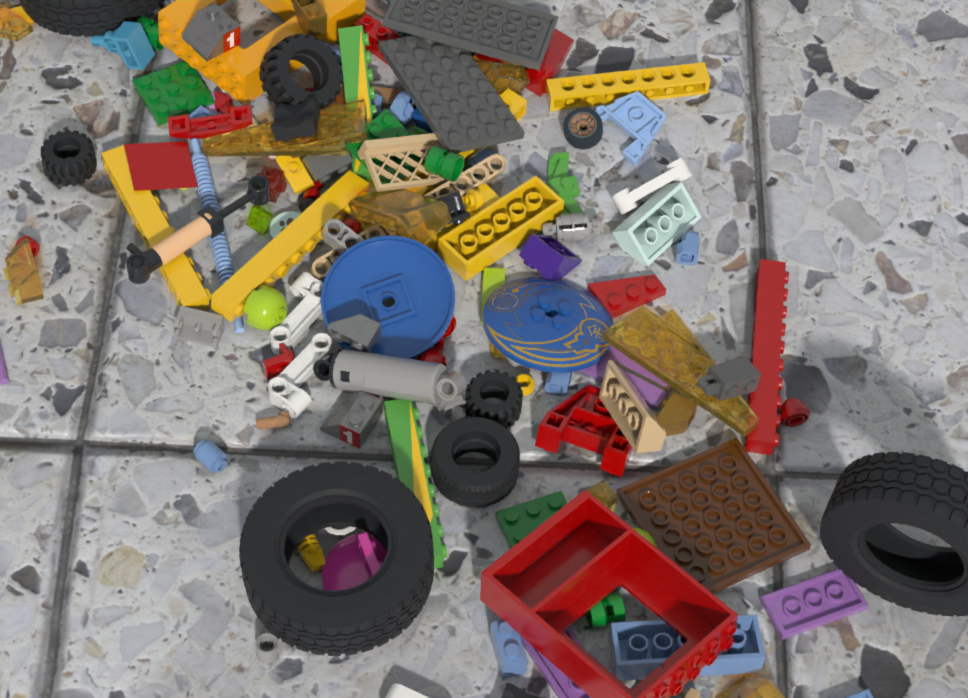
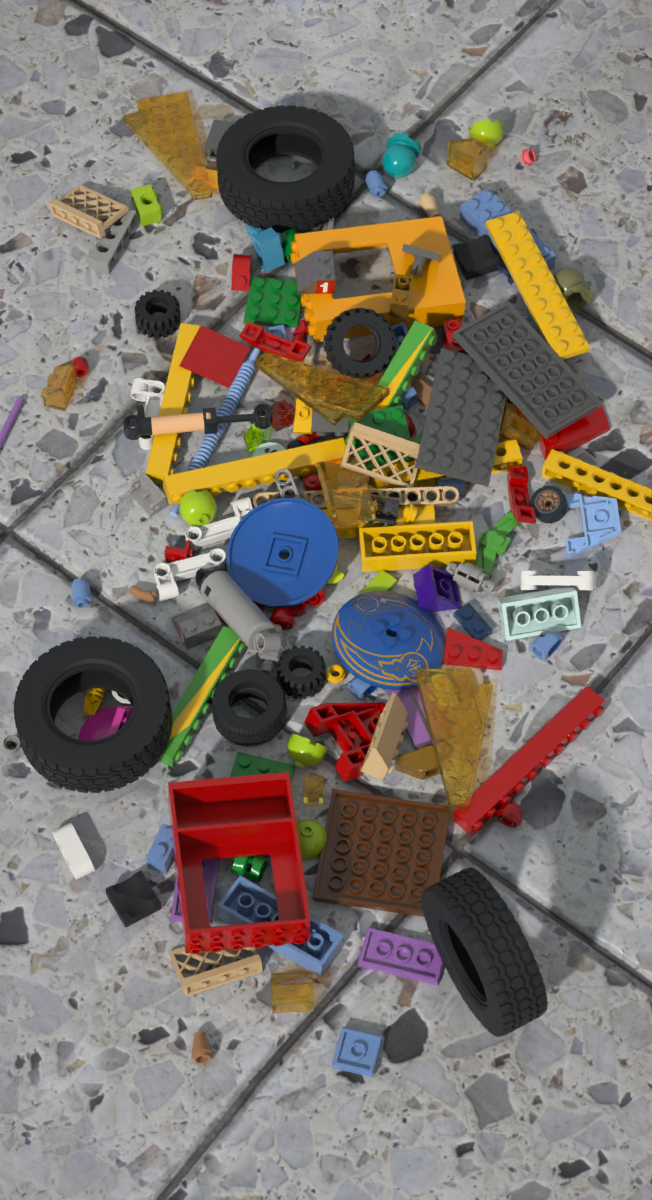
camera: 40 degrees right, 5 degrees up
(120, 77) = (241, 271): none -> red brick
(123, 232) = (146, 391): none -> white piece
(296, 120) = (324, 376): black brick -> none
(357, 331) = (242, 564): flat silver slope -> none
(402, 108) = (419, 411): medium blue rock -> none
(444, 163) = (405, 473): green wheel -> none
(549, 138) = (518, 494): none -> red slope
(562, 470) = (305, 751): none -> lime cylinder
(604, 266) = (472, 622): none -> dark blue plate
(730, 379) = (472, 760): dark grey brick -> none

